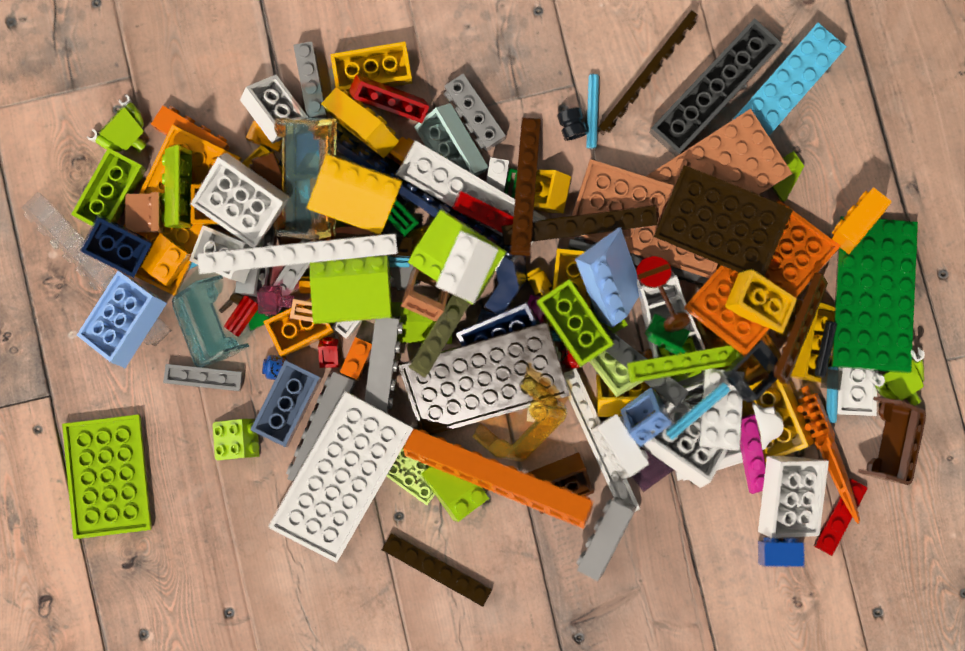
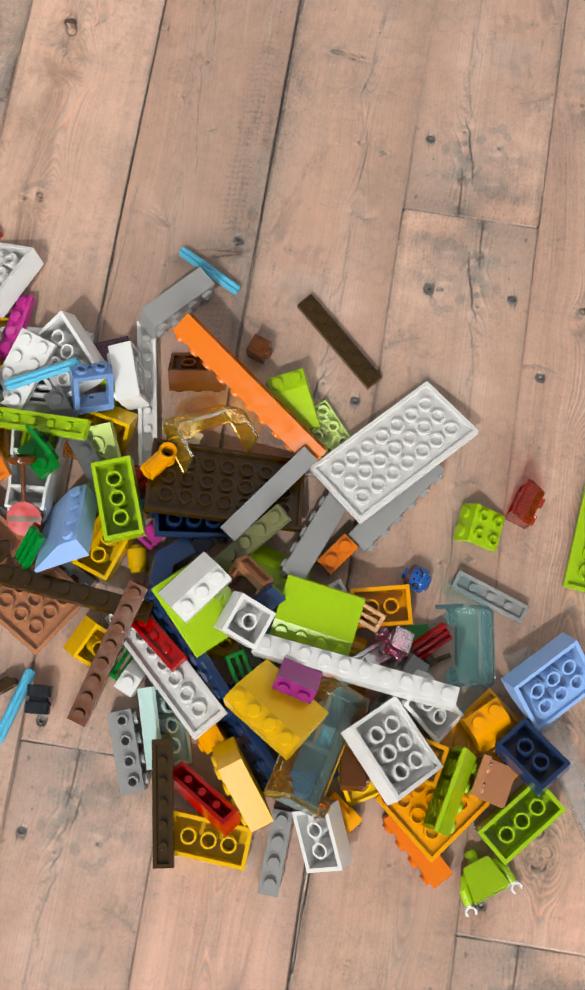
camera: 160 degrees left, 5 degrees down
(199, 476) = (525, 504): none -> clear red slope
(286, 404) = (420, 538): sand blue slope -> none
(328, 353) = (361, 572): red bracket -> none
(344, 223) = (297, 680): none -> magenta brick
(402, 281) = (270, 597): none -> dark blue tile
(411, 256) = (244, 620): none -> white brick
(421, 80) = (163, 804): none -> dark brown plate
(439, 385) = (268, 494): none -> light grey tile
(509, 528) = (259, 349): none -> reddish brown brick
(551, 371) = (159, 461): none -> light orange piece
(593, 591) = (212, 272): none -> medium azure axle
(639, 251) = (29, 547): none -> green tile
(781, 553) = (31, 233): blue brick -> none

